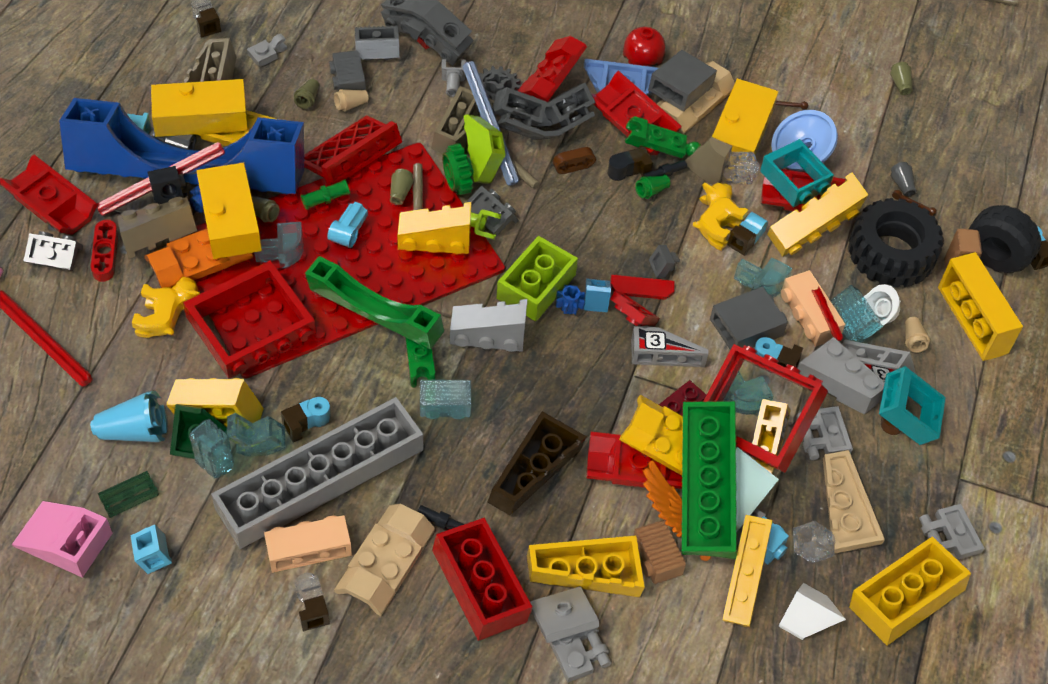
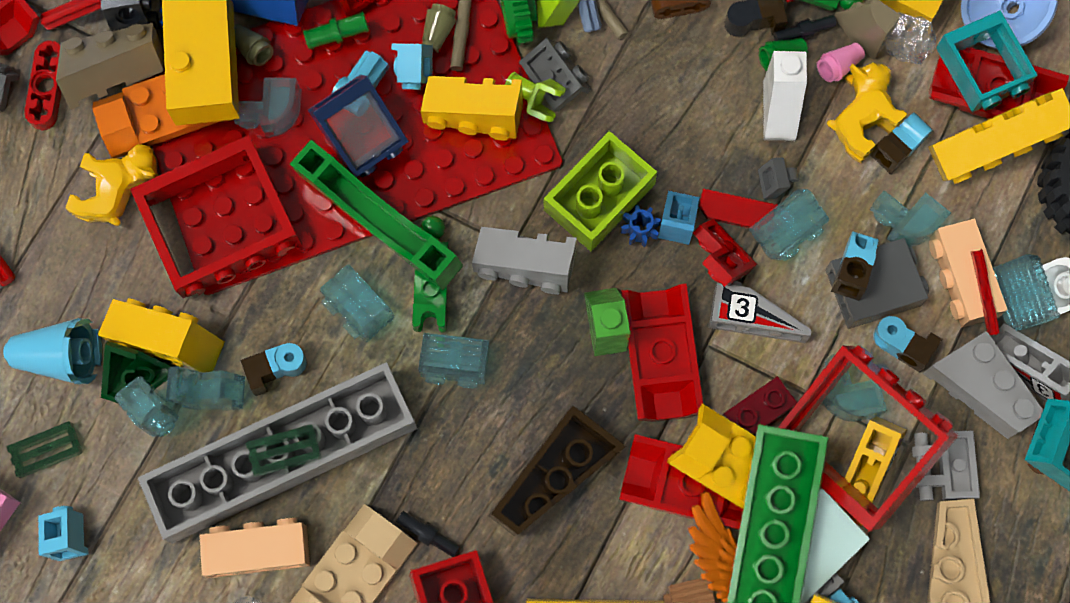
camera: 15 degrees right, 20 degrees up
(324, 457) = (278, 438): none -> clear green tile
(355, 248) = (358, 126): none -> window
(364, 369) = (356, 304): none -> clear light blue brick
(386, 207) = (413, 64): none -> medium azure brick
(558, 360) = (607, 321): none -> bright green slope
(602, 381) = (663, 354): none -> red piece
(659, 205) = (784, 94): none -> white slope
(678, 288) = (789, 225): none -> clear light blue brick
(692, 188) = (836, 63): none -> bright pink cone
(732, 304) = (855, 266): none -> dark brown leg

